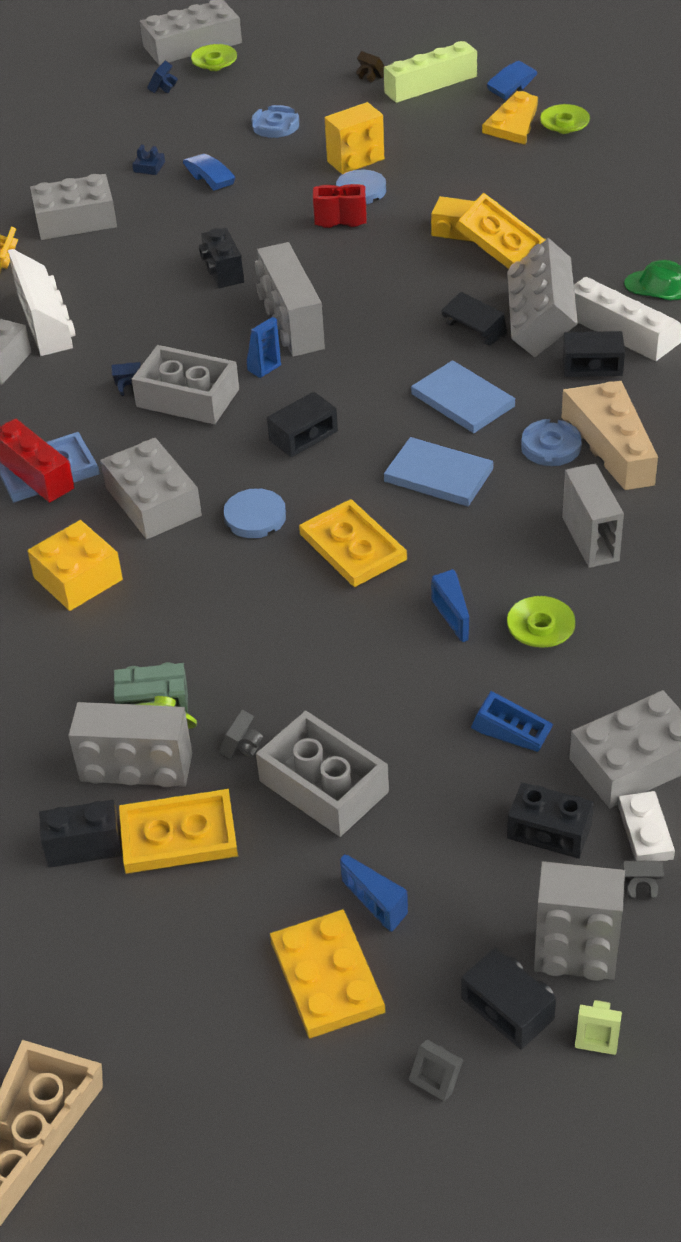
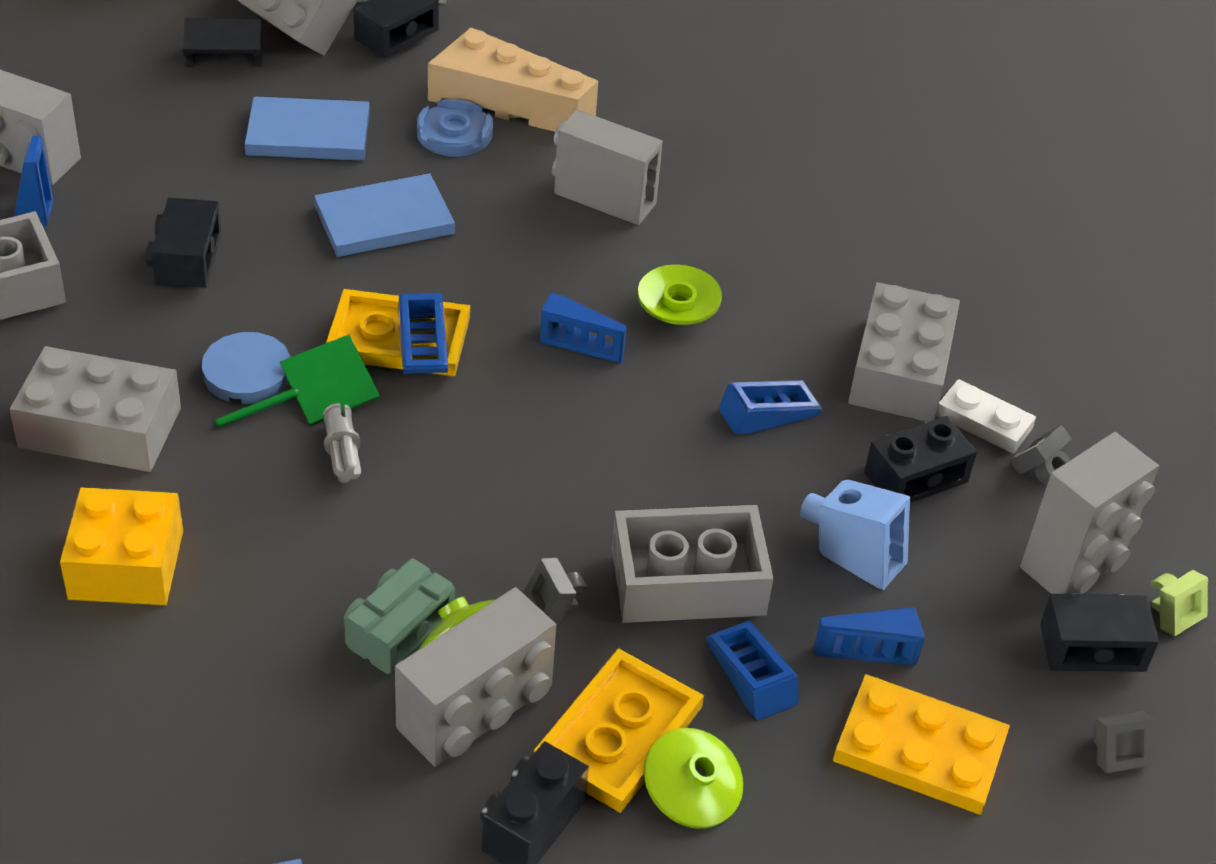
camera: 55 degrees left, 0 degrees up
(183, 902) = (679, 788): none -> lime dish
(244, 583) = (342, 442): none -> light grey axle
(279, 546) = (318, 379): none -> green piece
(295, 859) = (761, 695): none -> blue slope
(357, 528) = (422, 307): none -> blue slope
(447, 814) = (862, 529): none -> light blue torso

